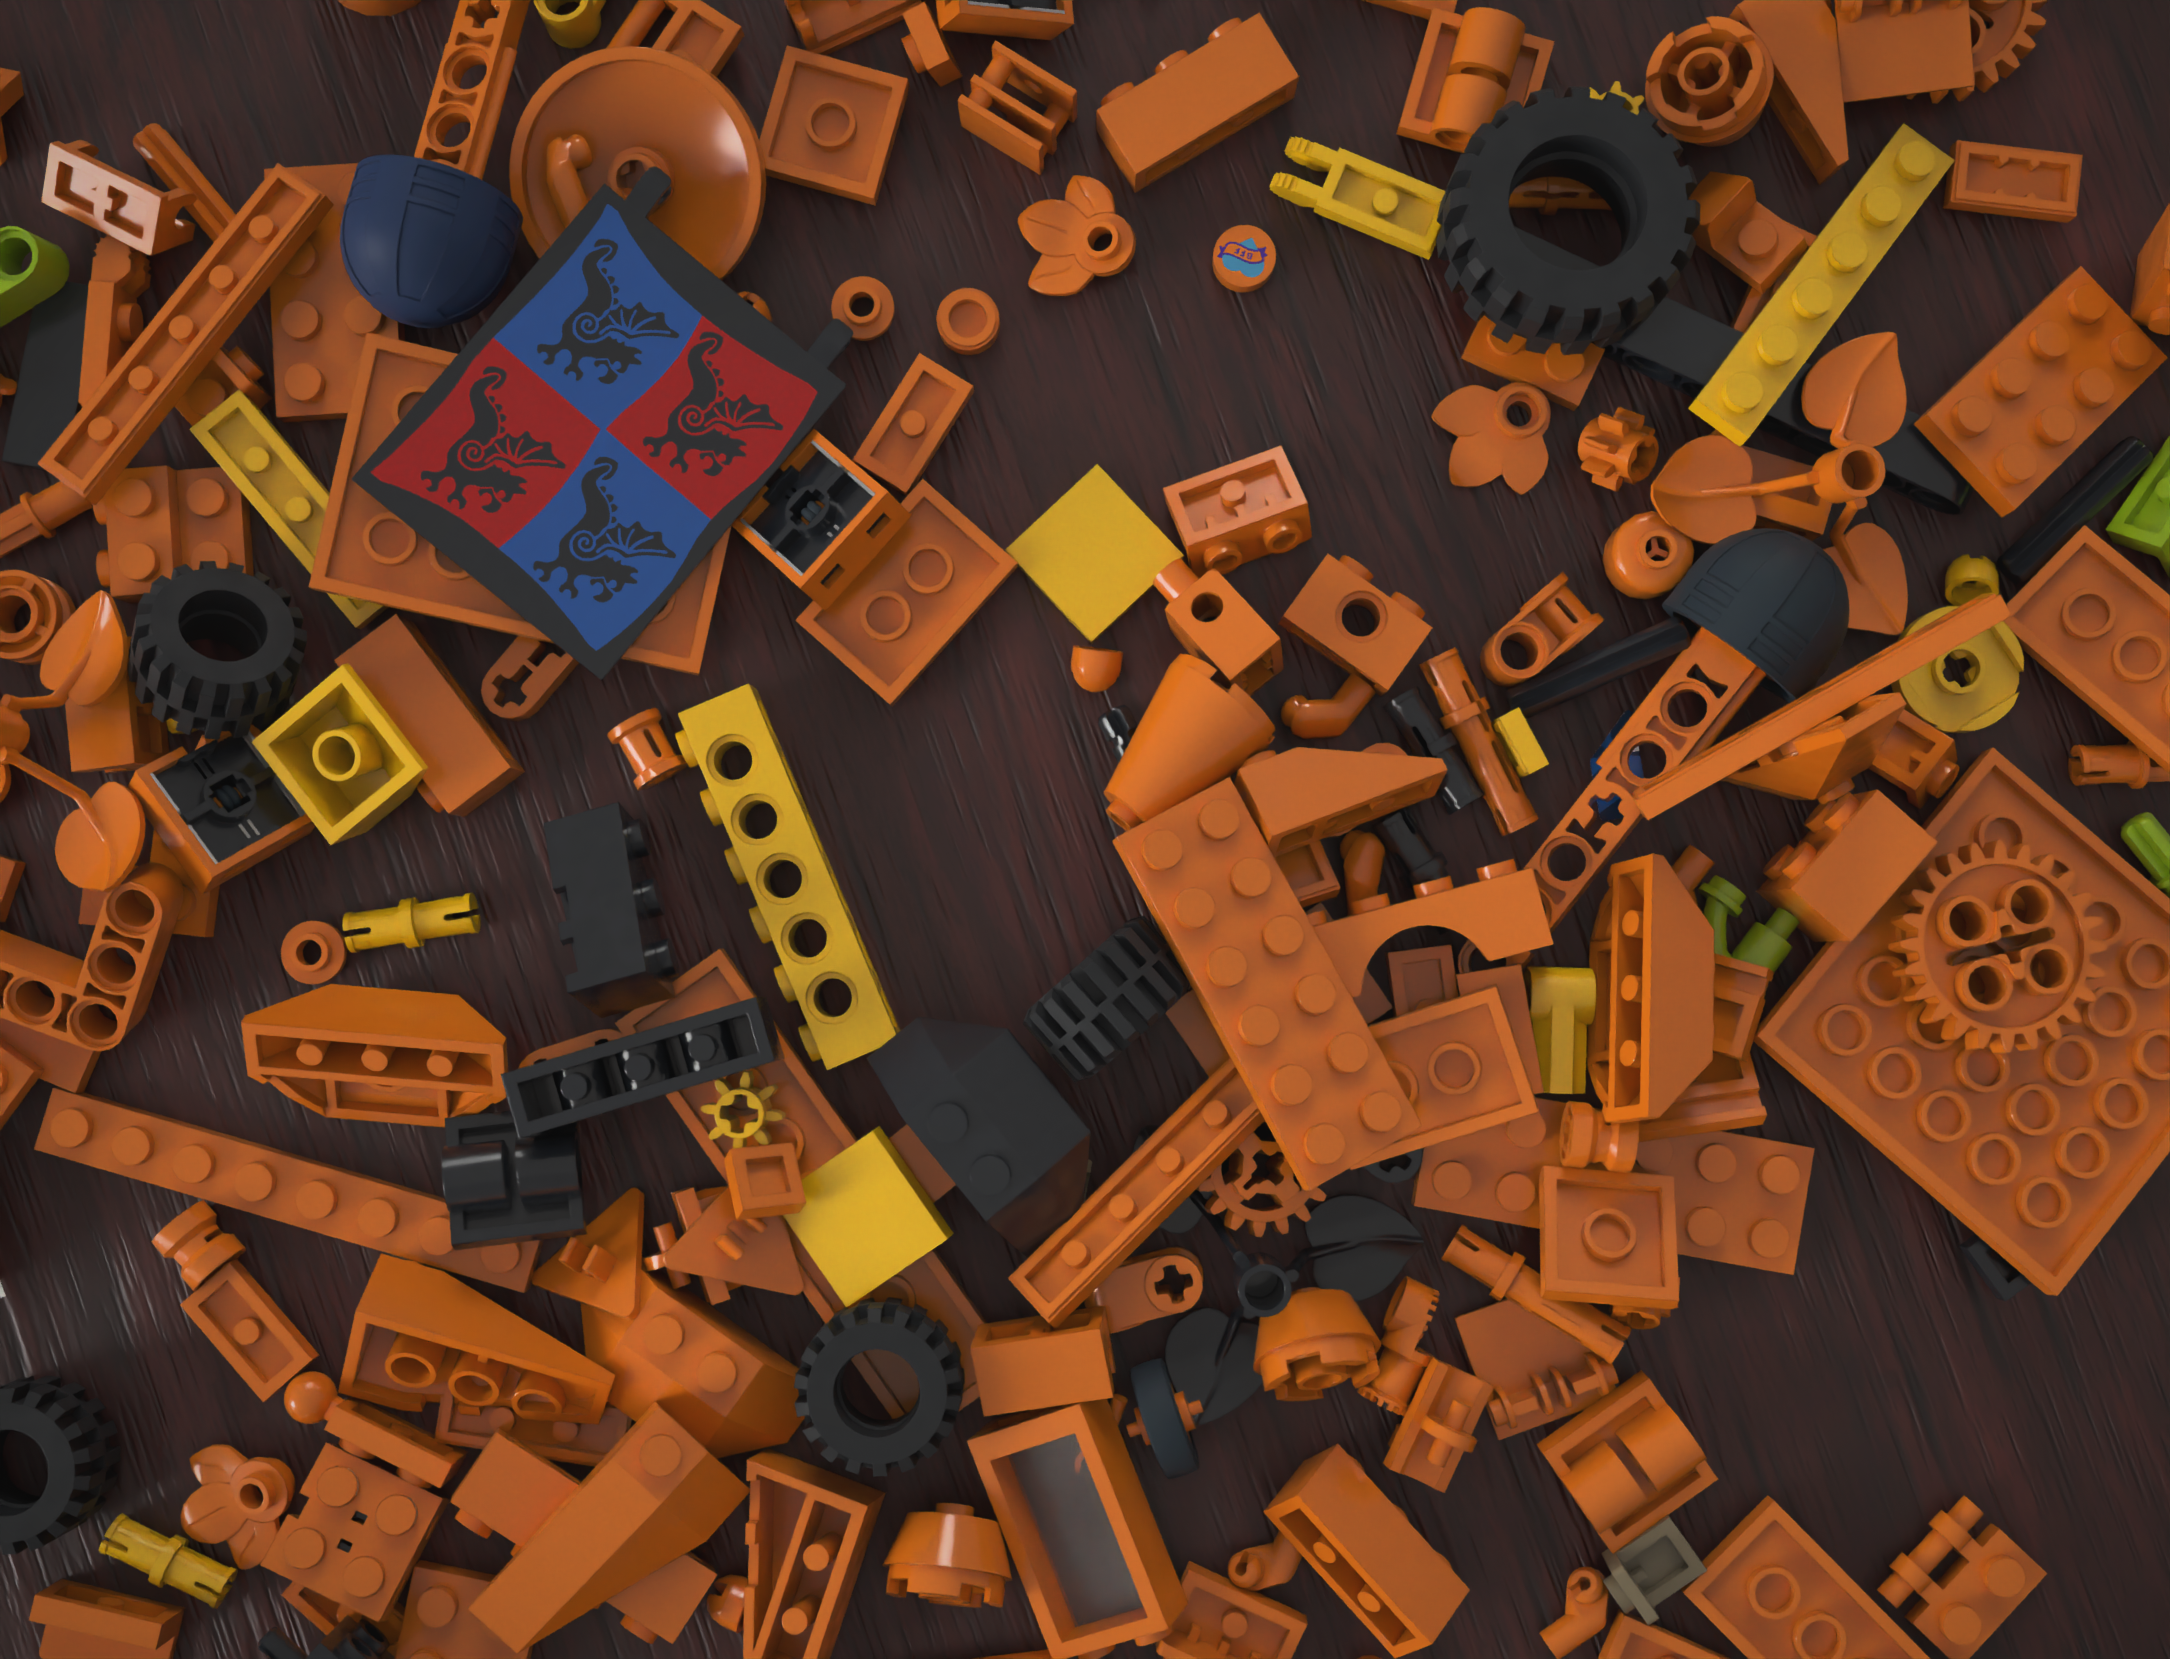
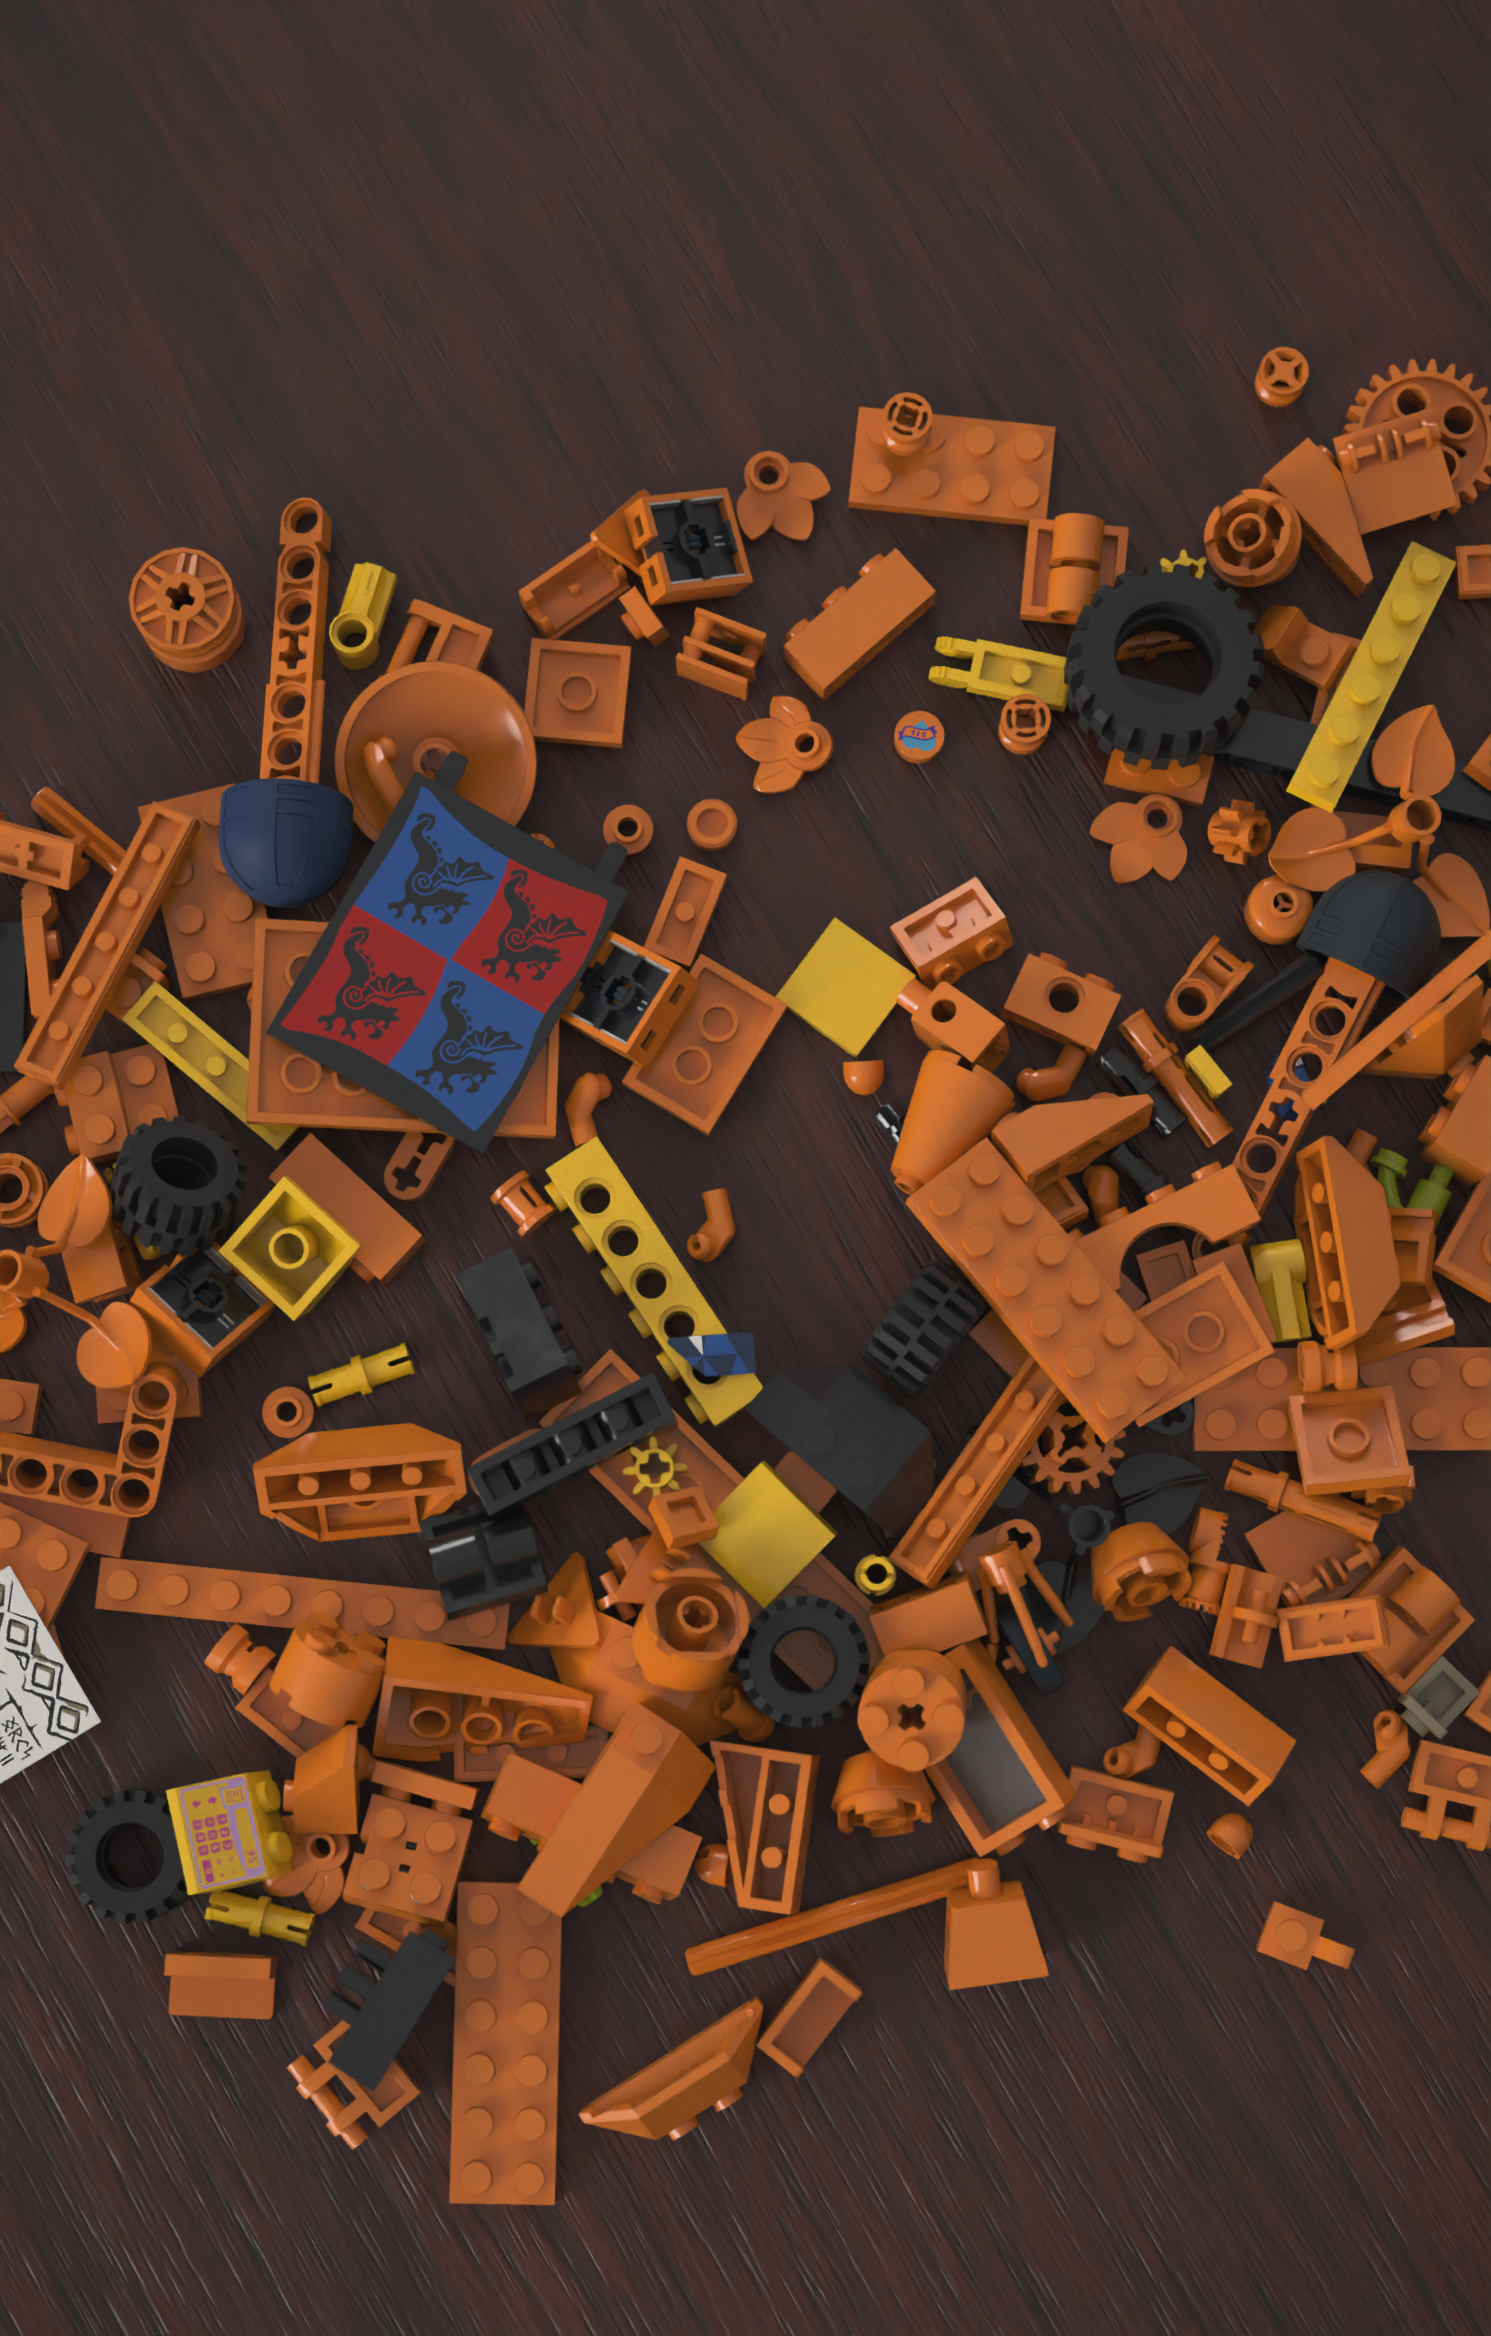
camera: 10 degrees left, 5 degrees down
(135, 1463) = (230, 1832): none -> yellow slope
(268, 1427) = (326, 1786): none -> orange slope
(295, 1288) = (330, 1672): none -> orange brick
(742, 638) = (581, 1102): none -> orange arm
(775, 1315) = (689, 1630): none -> orange brick
(781, 1421) = (743, 1714): none -> orange pin
(848, 981) = (718, 1353): none -> dark blue sticker
(878, 826) = (716, 1231): none -> orange arm
(998, 1304) = (887, 1568): none -> yellow pin
(1002, 1477) = (907, 1737): none -> orange brick
(1150, 1318) = (1005, 1569): none -> orange plant
(1369, 276) = (1020, 733): none -> orange wheel
(1543, 1465) = (1333, 1627): none -> orange plate

